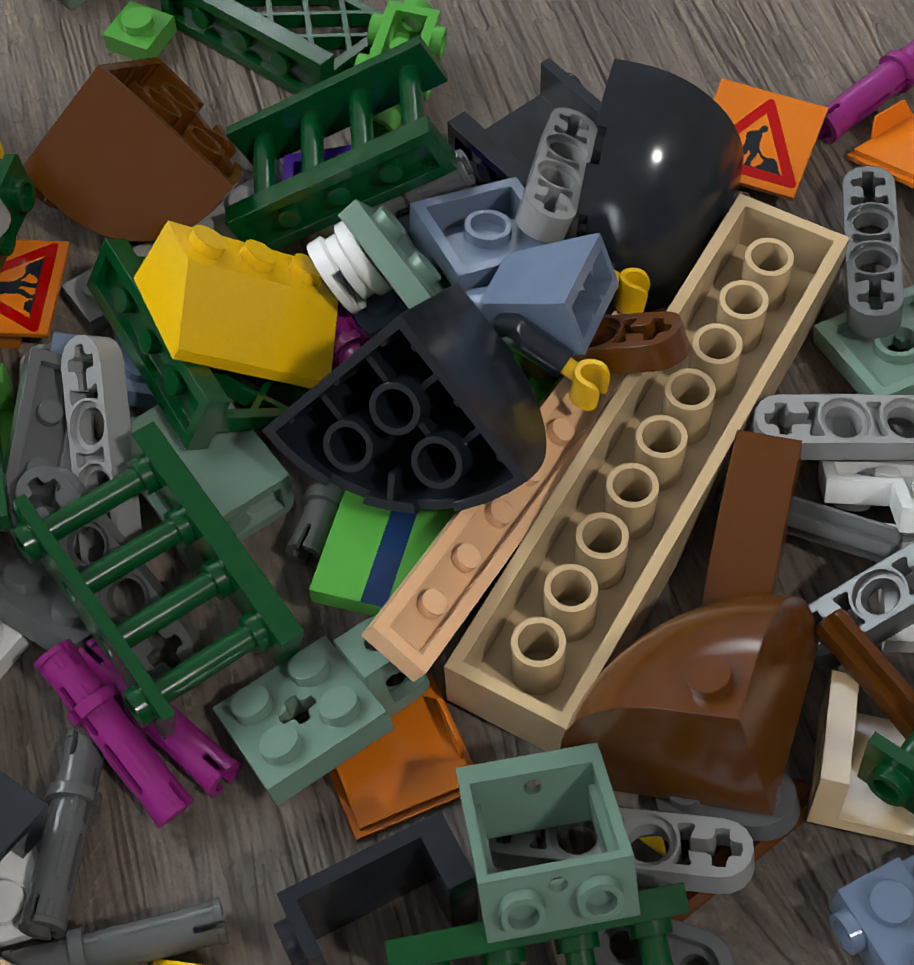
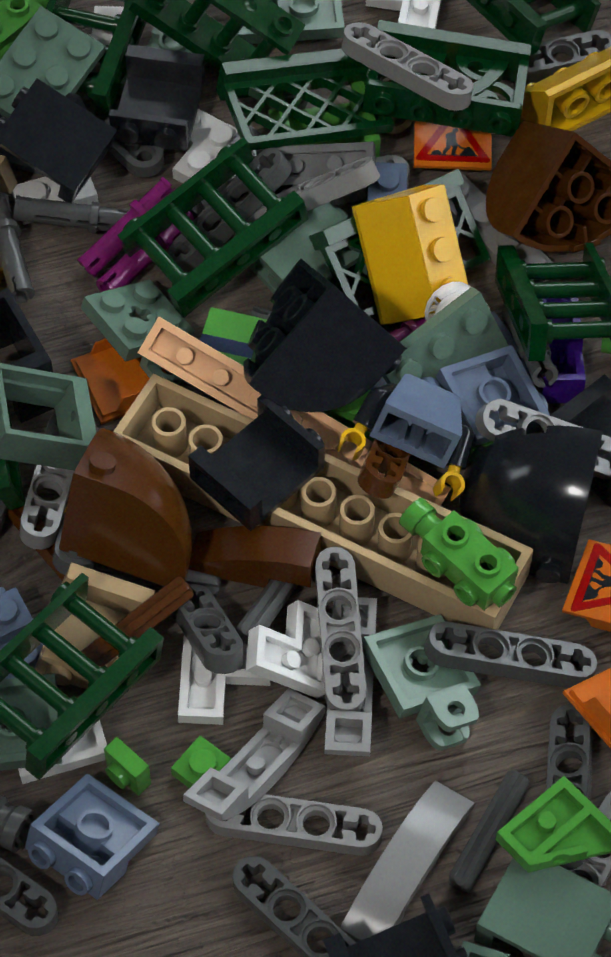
camera: 85 degrees right, 0 degrees up
(630, 504) = (259, 464): none -> black panel
(772, 257) = (462, 557): none -> bright green brick

